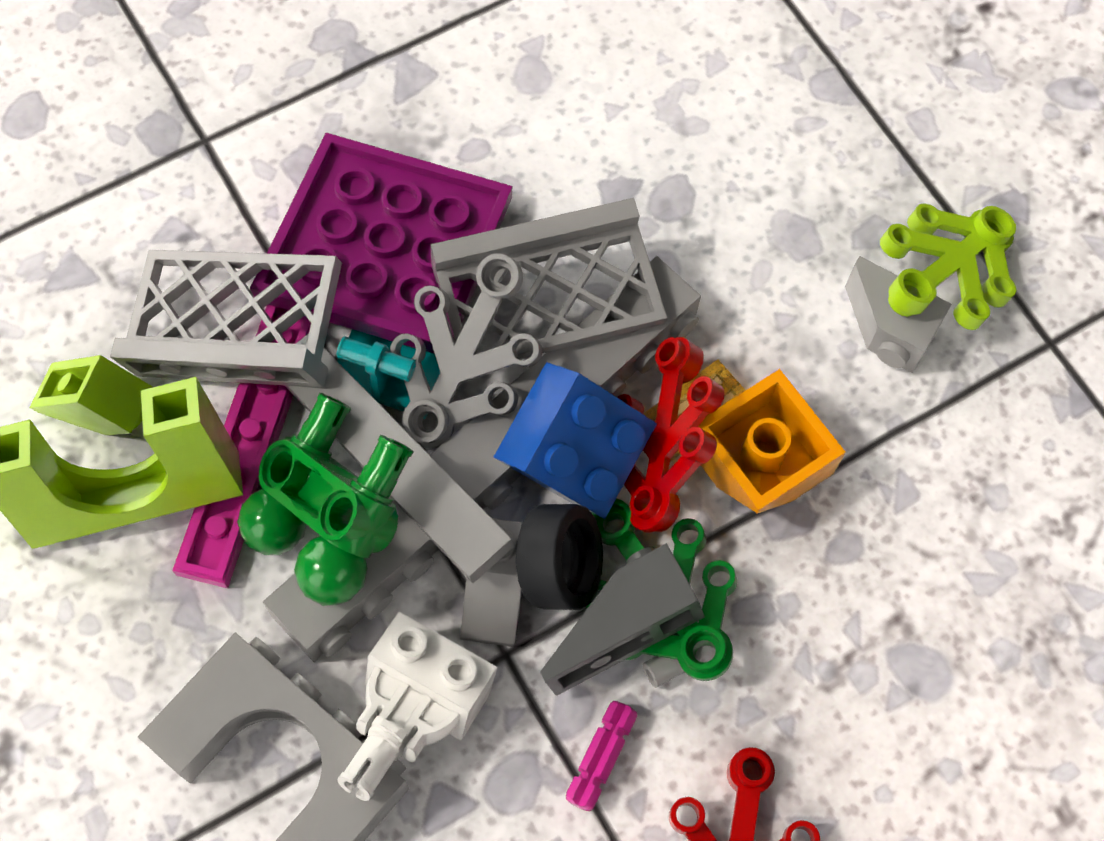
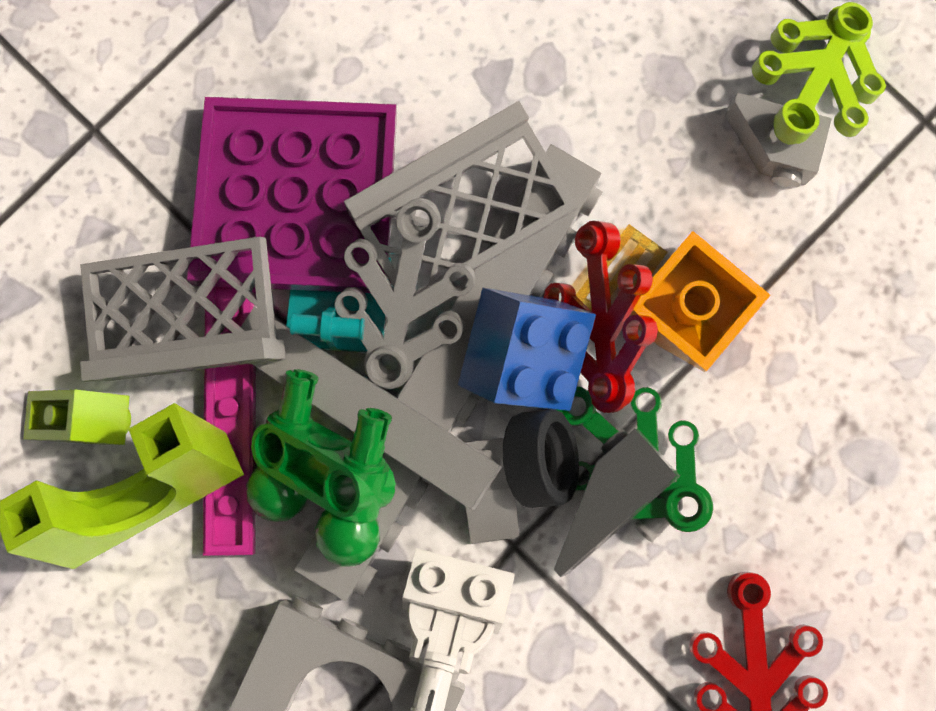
camera: 10 degrees left, 15 degrees up
(601, 756) = (620, 614): dark pink axle -> none

